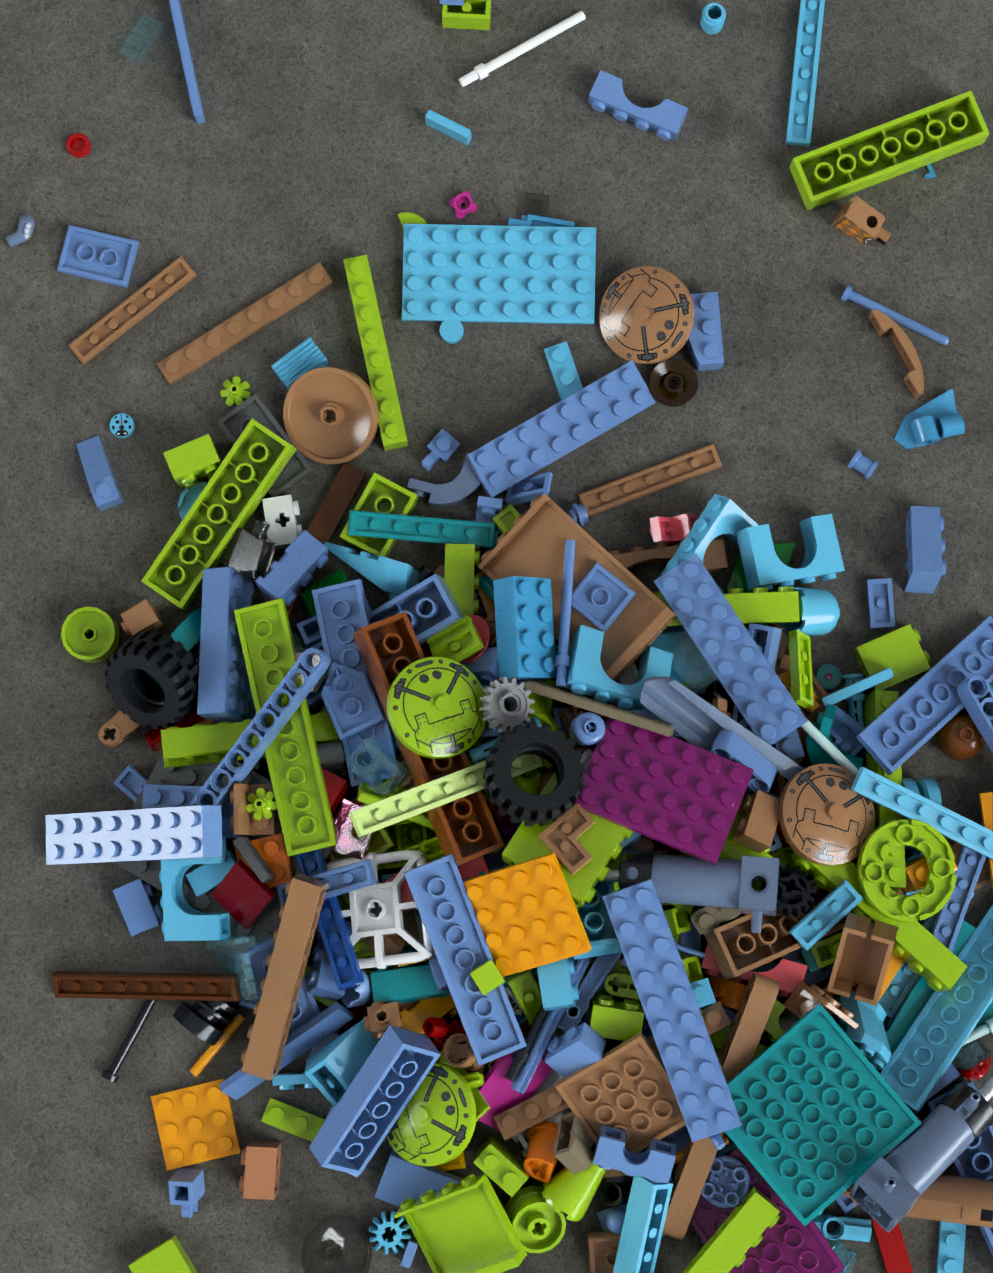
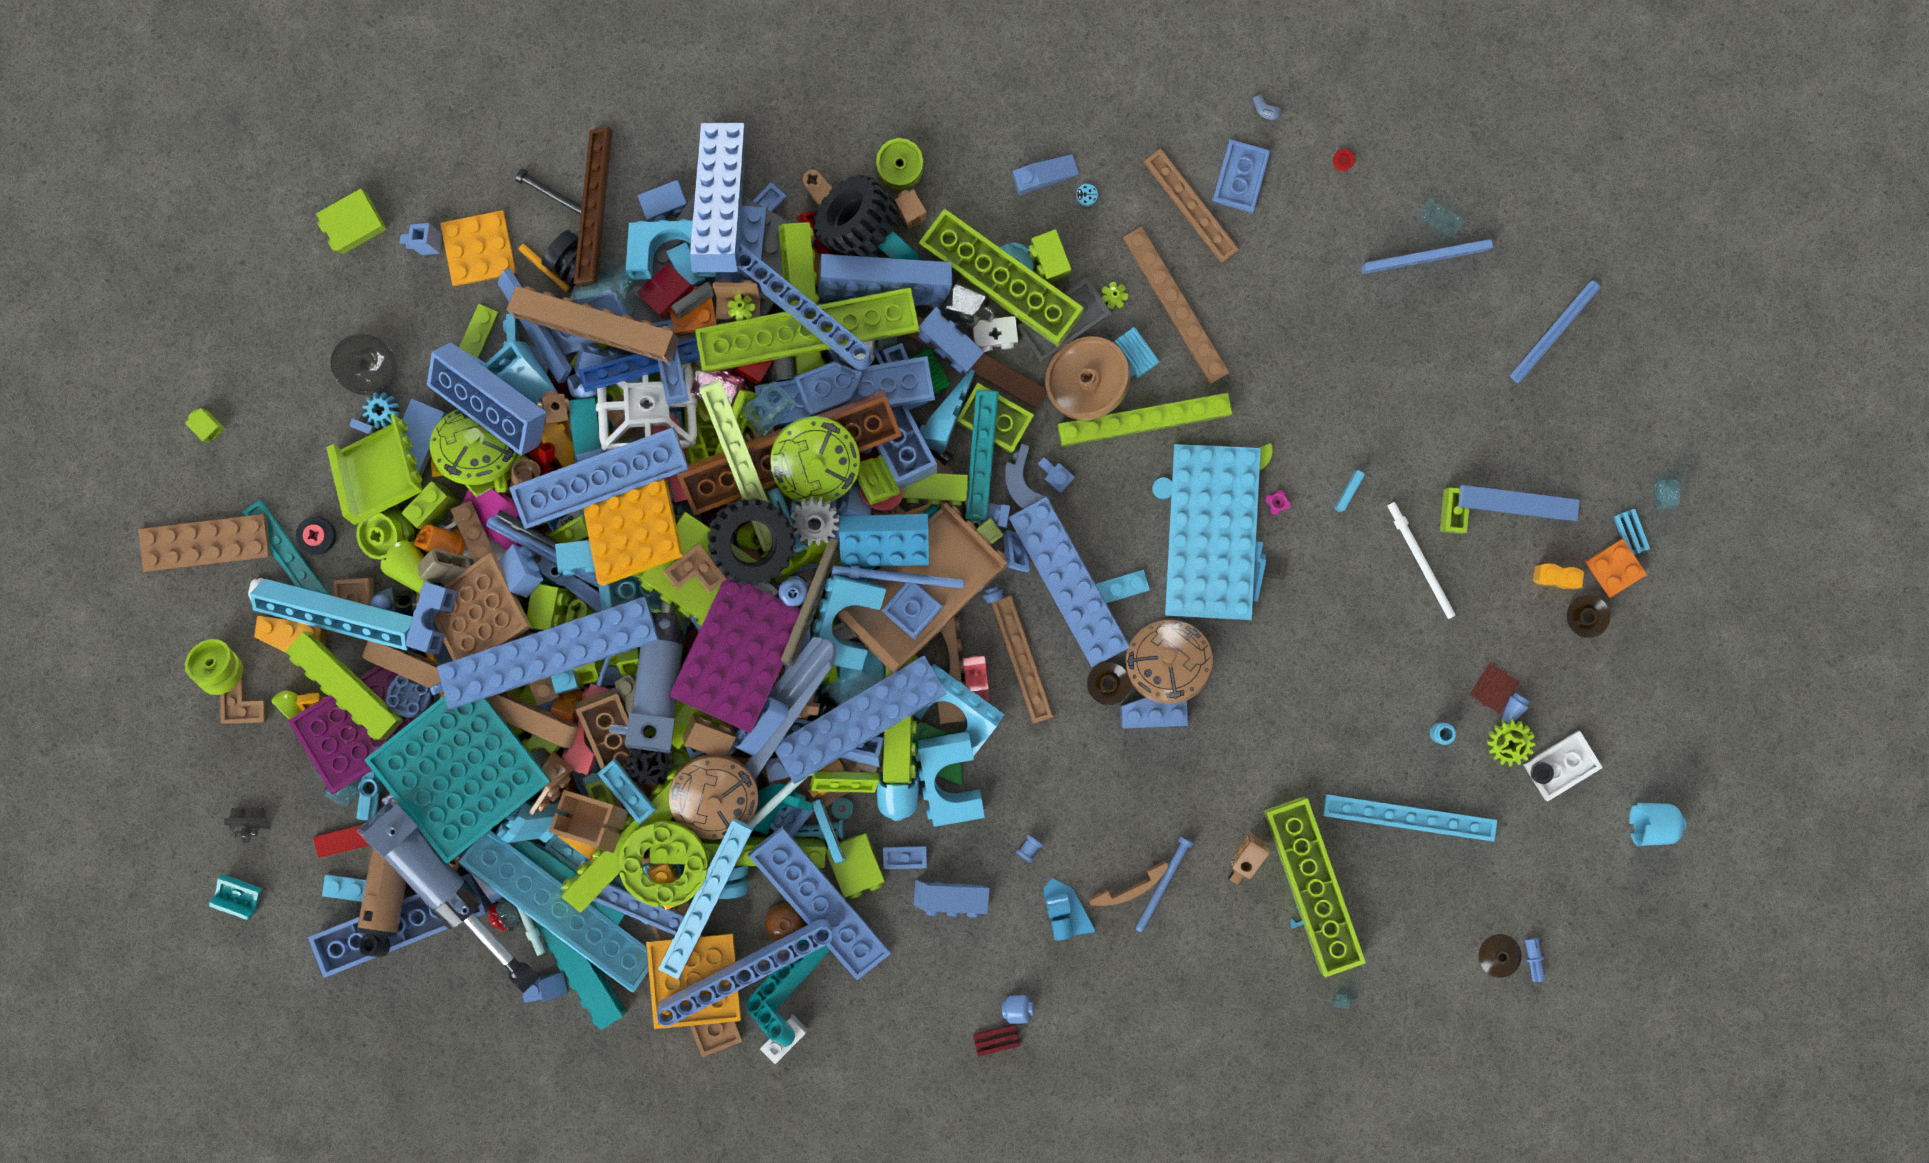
camera: 90 degrees right, 5 degrees up
(261, 1170) = (435, 302): nougat brick -> none
(487, 977) = (582, 496): lime tile -> none
(663, 119) = (1350, 685): medium blue arch -> none

